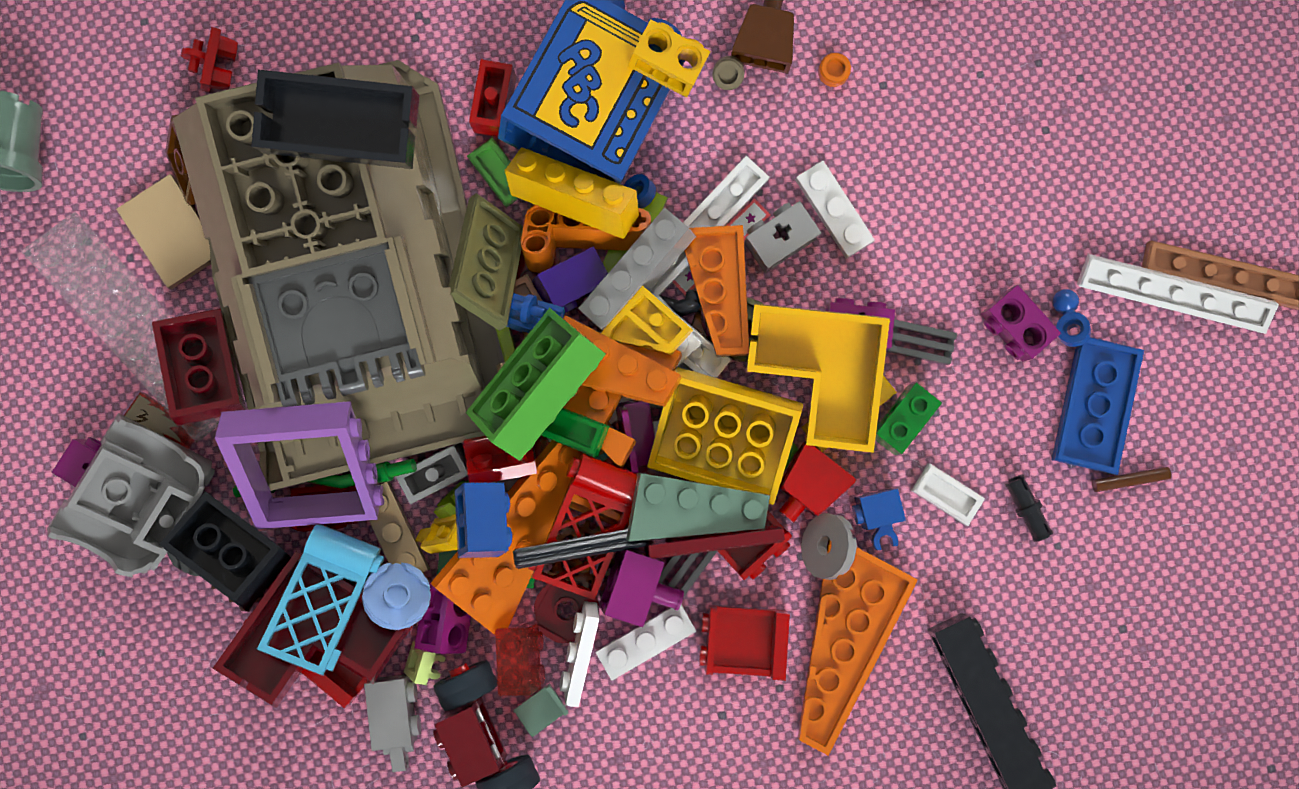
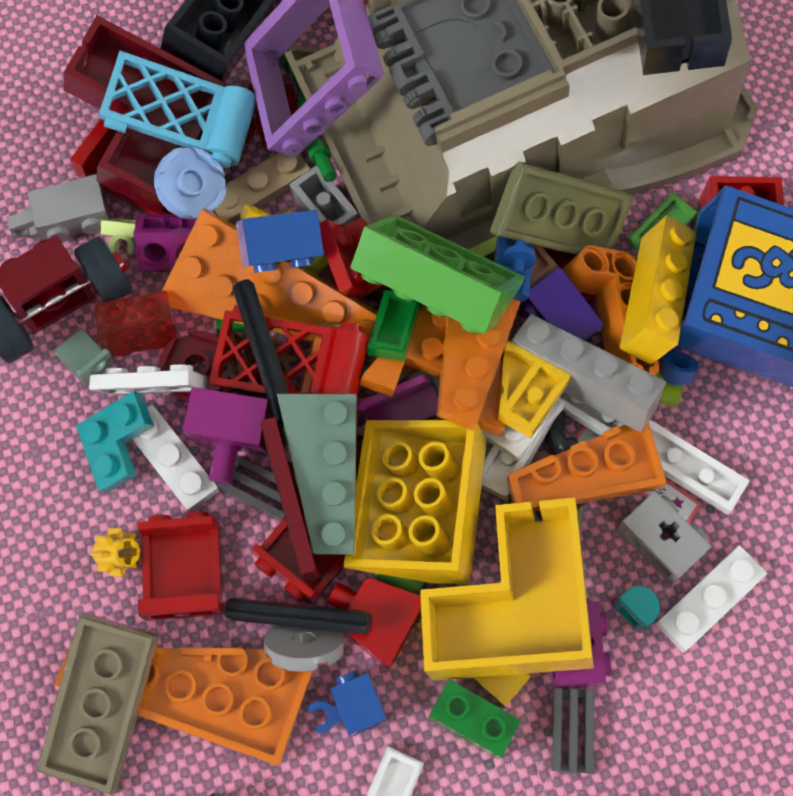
camera: 85 degrees right, 15 degrees down
(621, 696) = (105, 439): none -> teal plate
(725, 695) = (116, 552): none -> yellow gear
(804, 548) = (299, 615): none -> black axle
(835, 270) = (638, 607): none -> teal brick
(848, 720) = (98, 703): none -> dark tan tile

